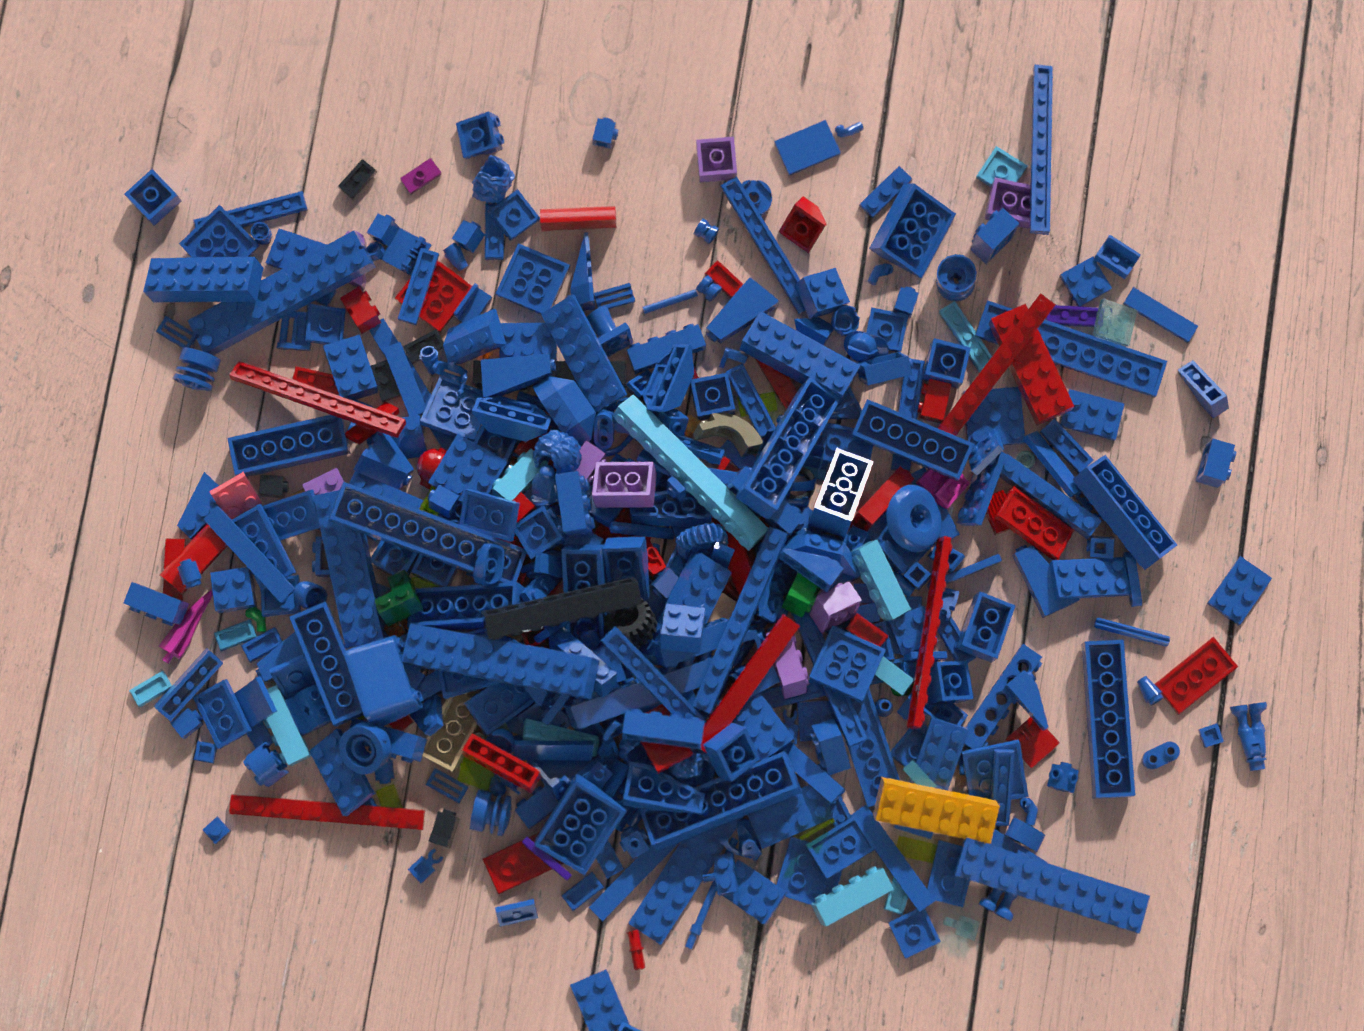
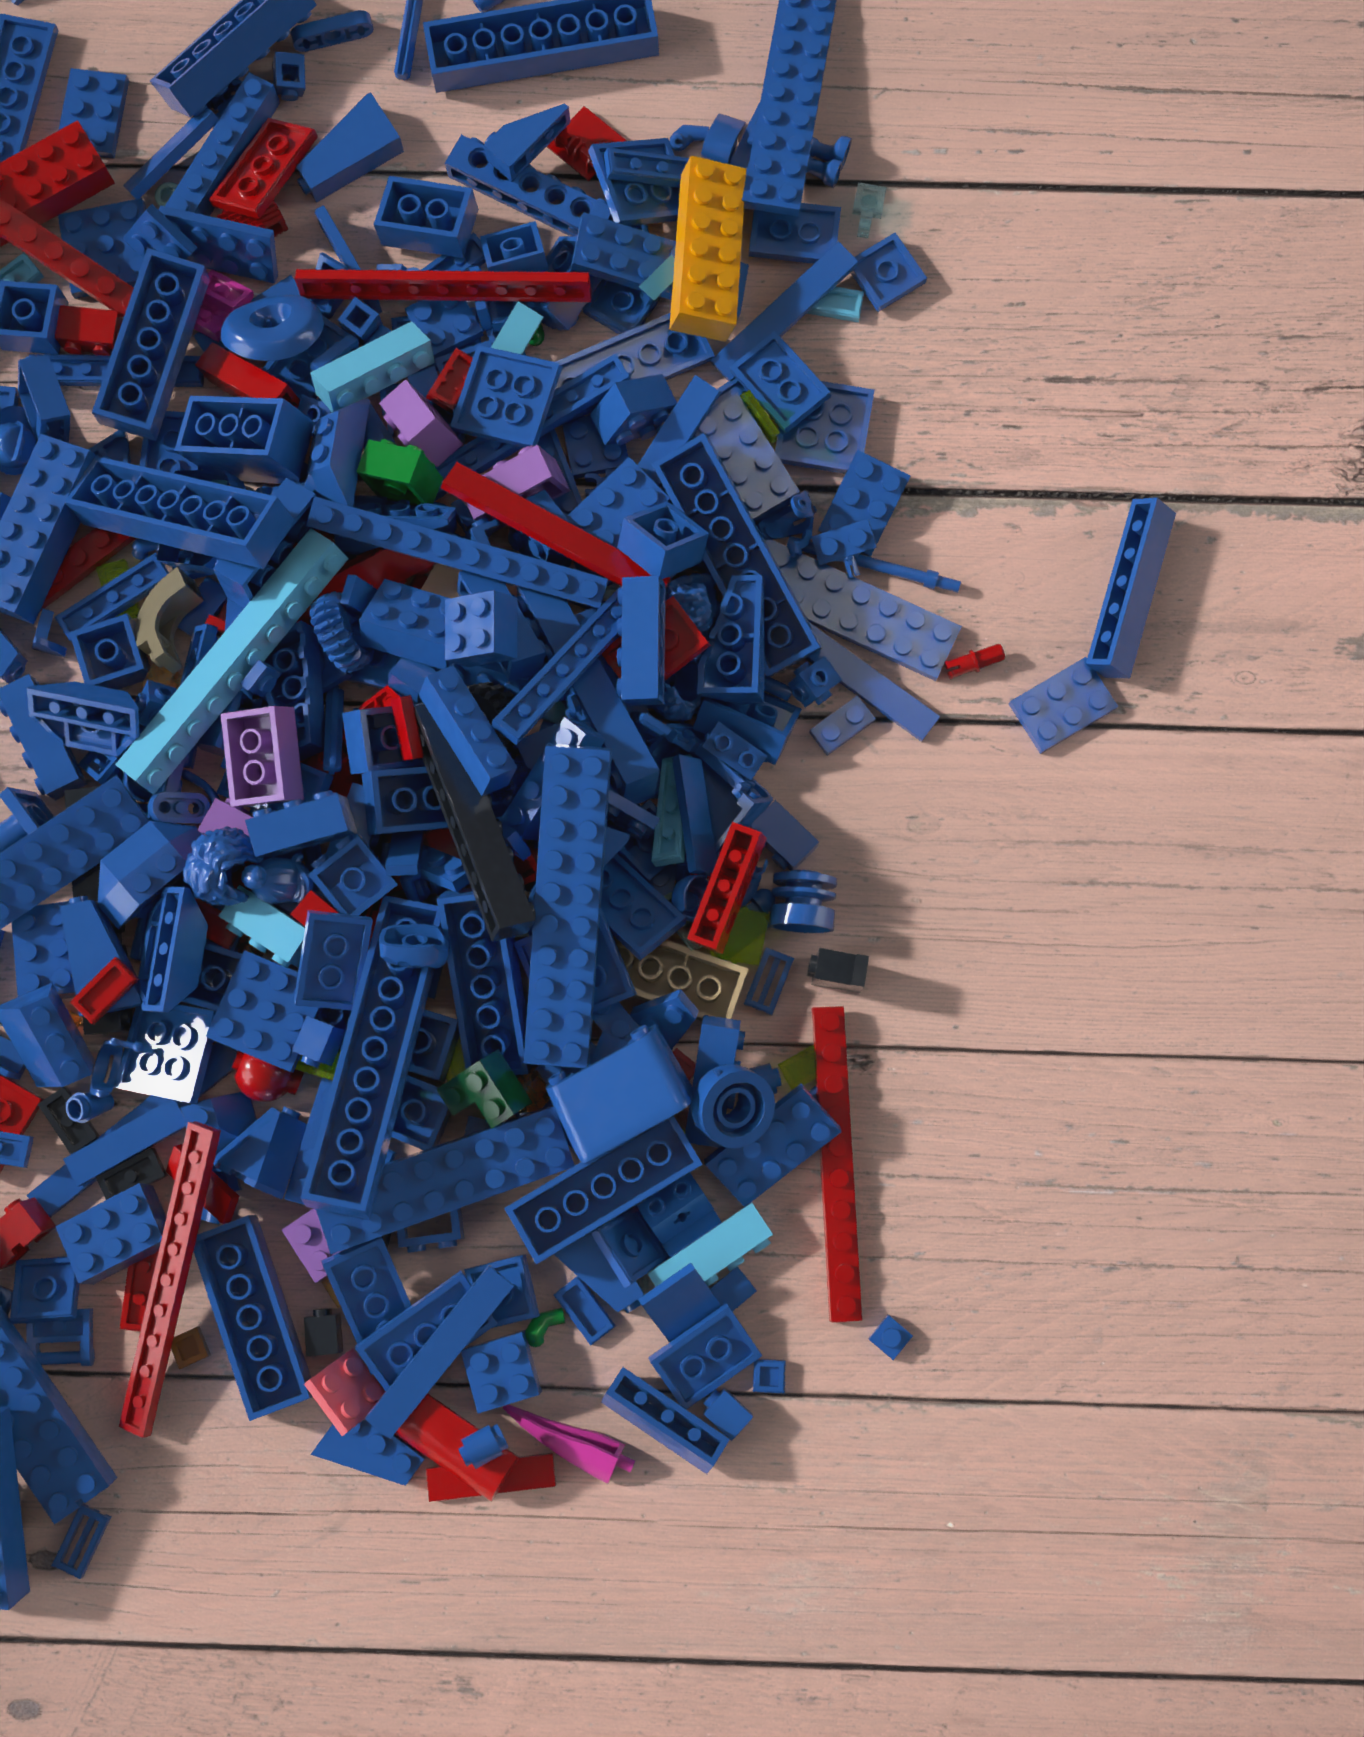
camera: 95 degrees left, 0 degrees up
(151, 689) = (679, 1484): medium azure tile -> none
(155, 604) = (540, 1498): blue brick -> none
(196, 369) = (137, 1495): blue wheel -> none
(235, 635) = (574, 1357): dark azure tile -> none
(265, 765) = (778, 1270): blue brick -> none
(277, 406) = (189, 1347): none -> dark orange plate
(309, 594) = (496, 1241): blue piece -> none
(424, 867) = (901, 998): blue plate -> none
(493, 376) = (104, 990): none -> red tile
(515, 866) = (865, 844): red tile -> none
(516, 912) = (947, 845): blue plate -> none
(547, 859) = (860, 807): dark purple tile -> none
(580, 825) = (803, 760): blue slope -> none
(582, 891) = (899, 753): blue tile -> none
(615, 612) = (467, 730): none -> blue brick
(627, 575) = (407, 727): none -> red tile
(816, 568) = (363, 449): blue slope -> none
(851, 896) = (850, 358): medium azure brick -> none
(883, 712) = (561, 346): blue cone -> none
(916, 849) = (765, 283): clear neon green tile -> none
(1063, 777) = (634, 91): blue brick -> none
(1066, 446) = (142, 140): blue plate -> none
(1090, 578) = (337, 83): blue plate -> none

